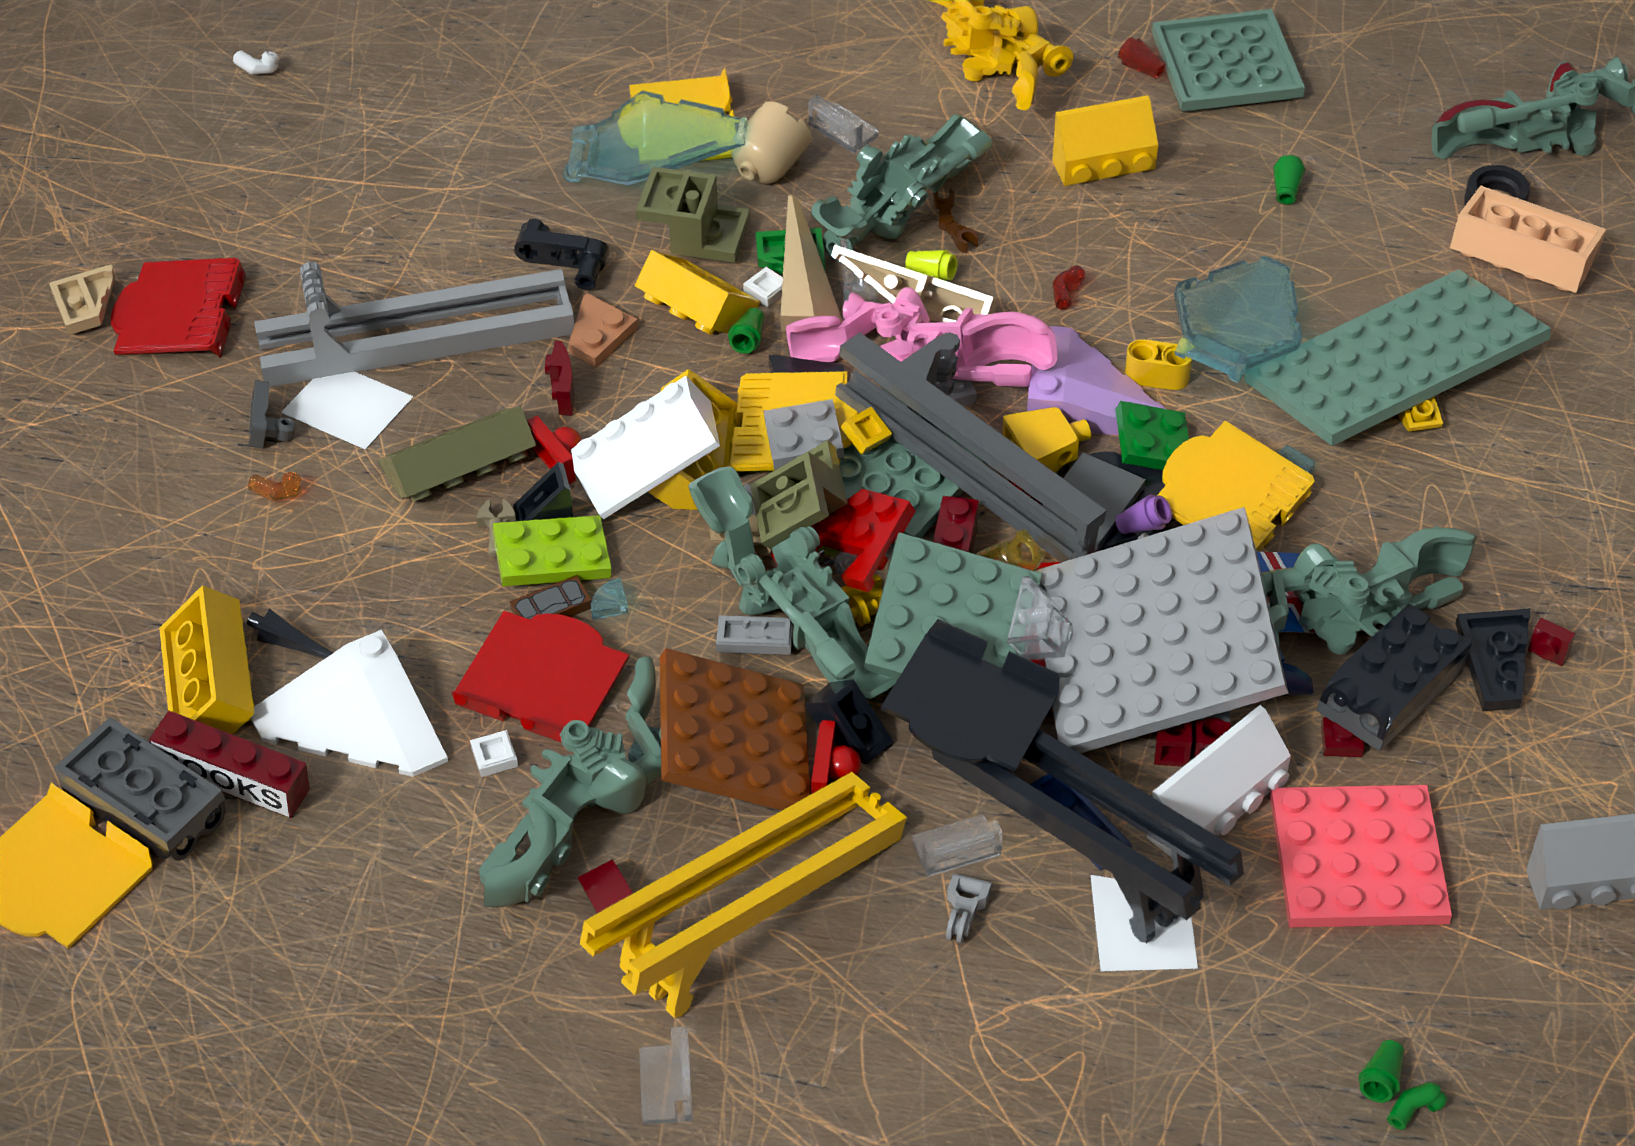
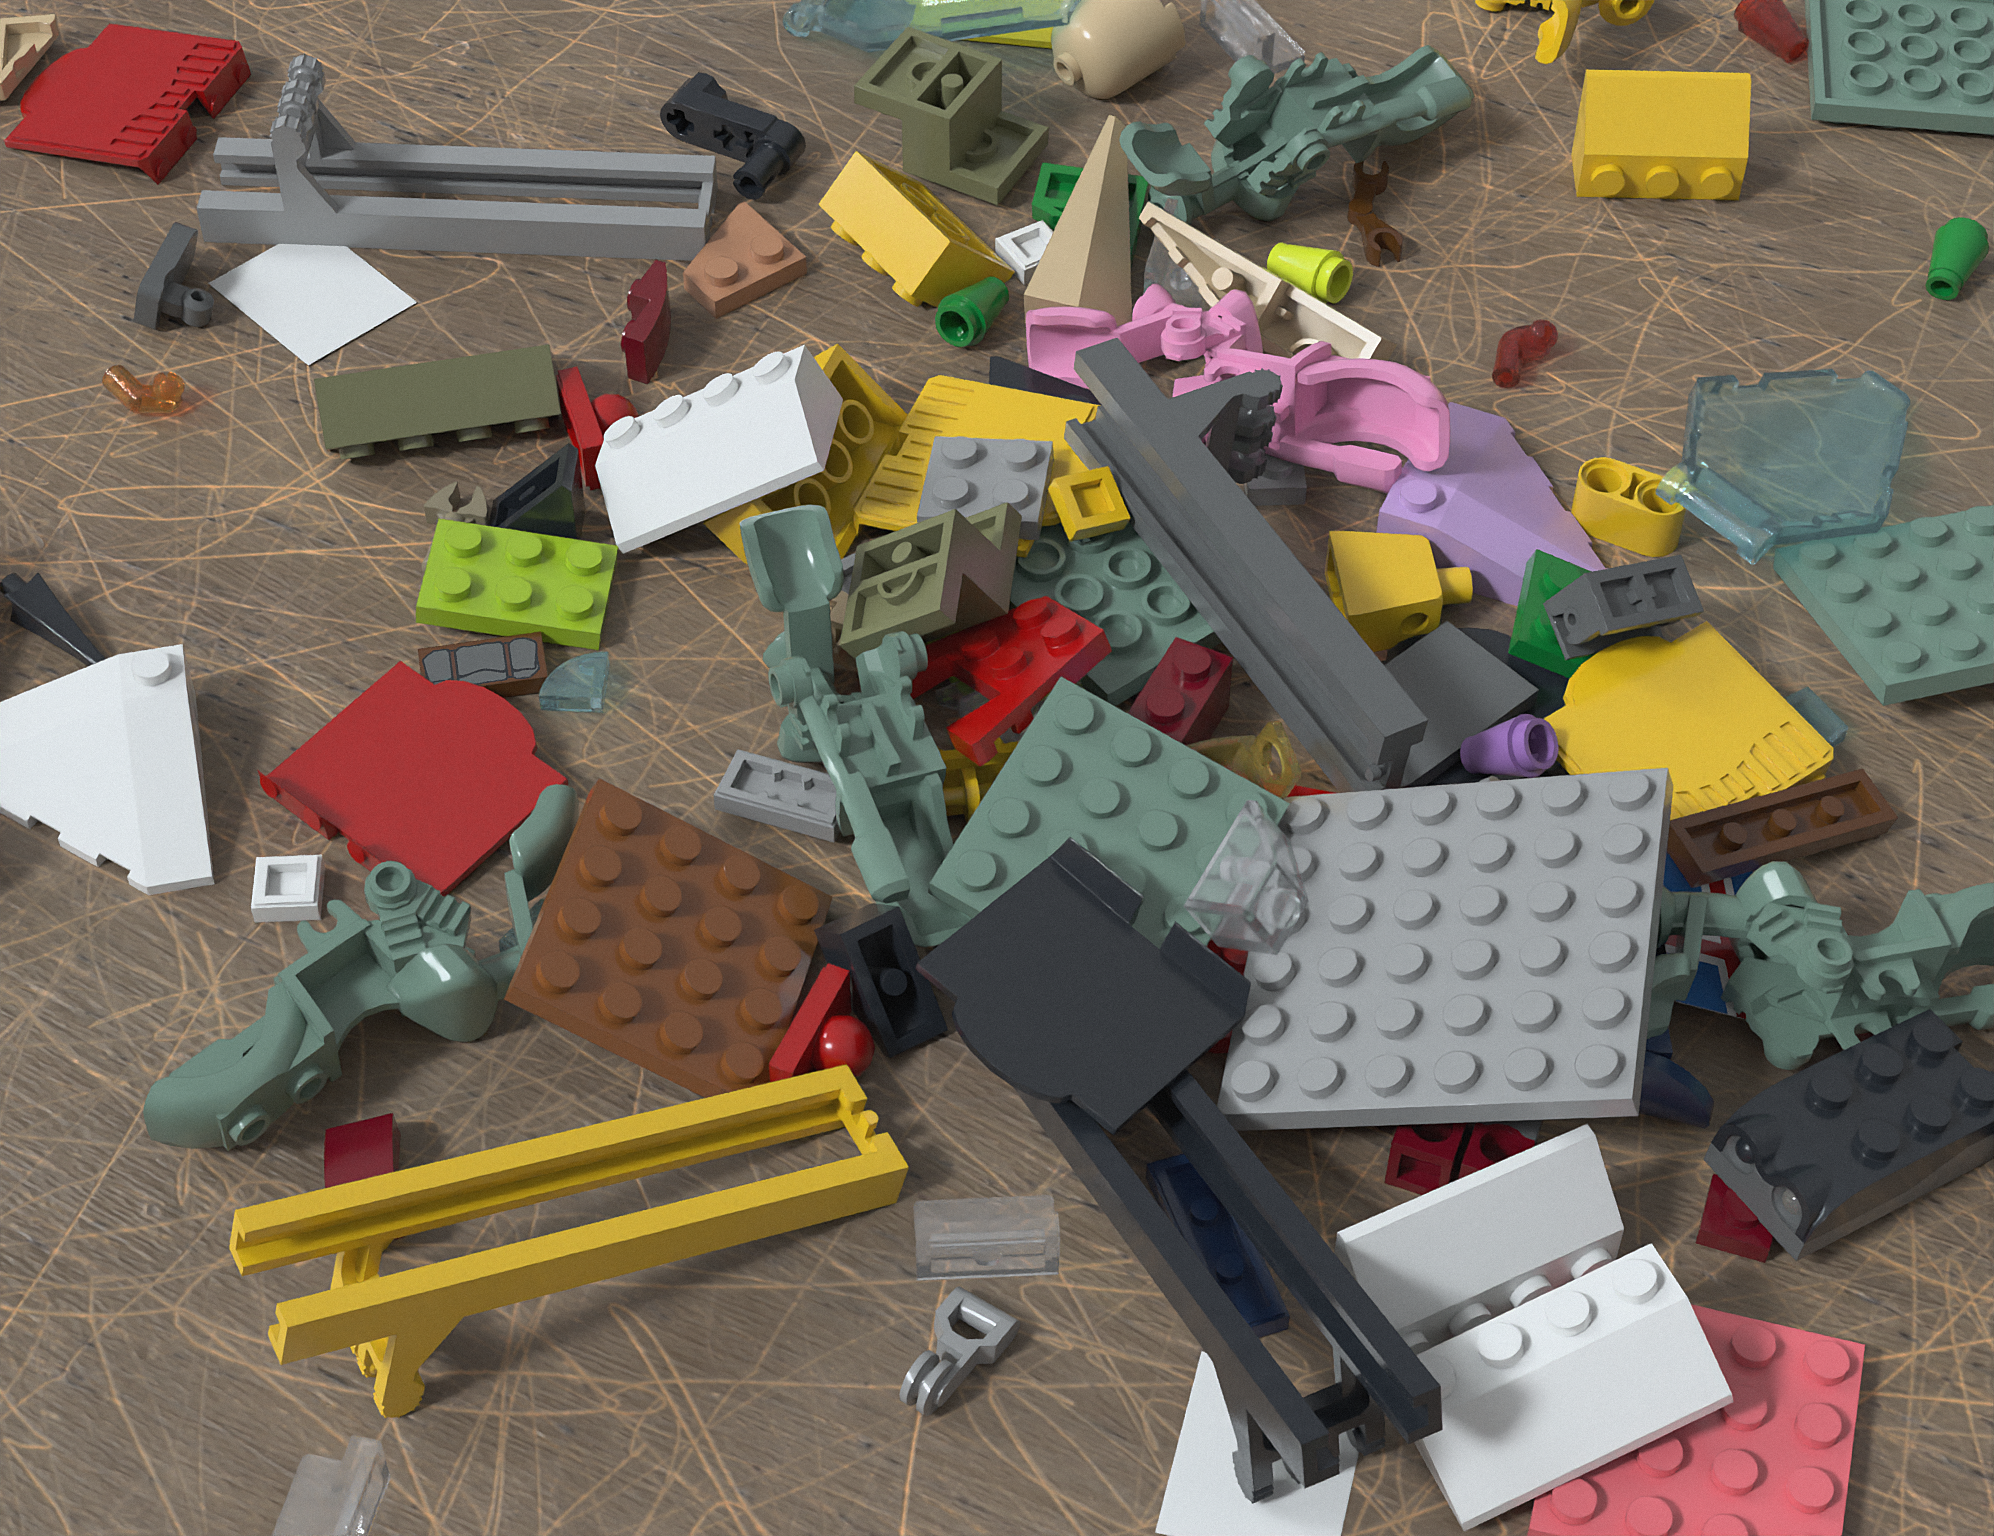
camera: 15 degrees right, 0 degrees up
(1180, 422) = (1621, 605): none -> dark grey hinge
(1291, 841) = (1567, 1386): none -> white slope
(1301, 524) = (1778, 827): none -> reddish brown plate

